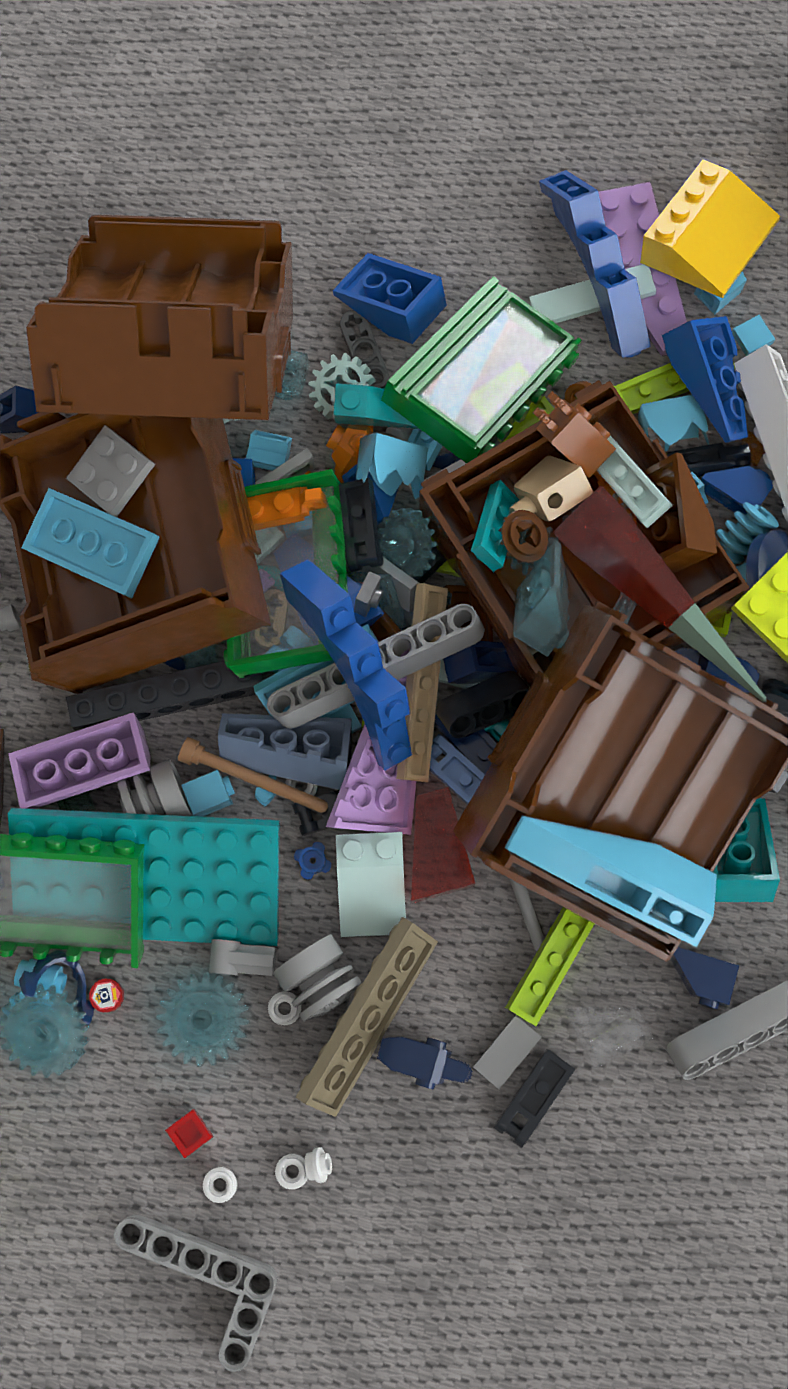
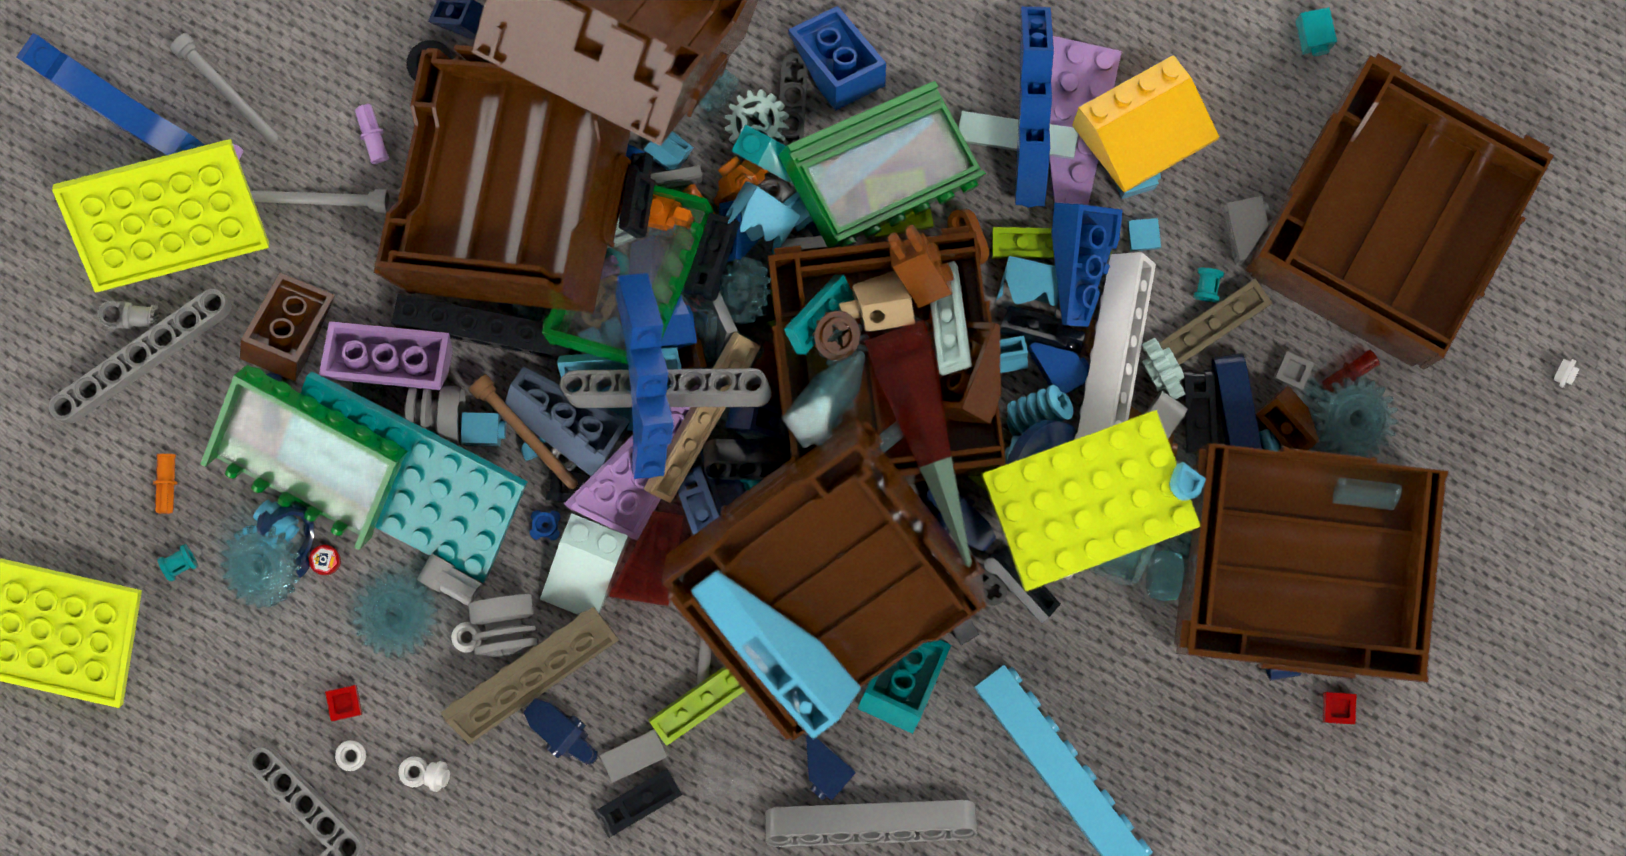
camera: 20 degrees right, 5 degrees up
(90, 542) = (471, 178): medium azure plate -> none
(110, 471) = (515, 123): light grey plate -> none
(262, 496) = (637, 196): none -> black hinge
(369, 594) = (688, 323): flat silver plate -> none

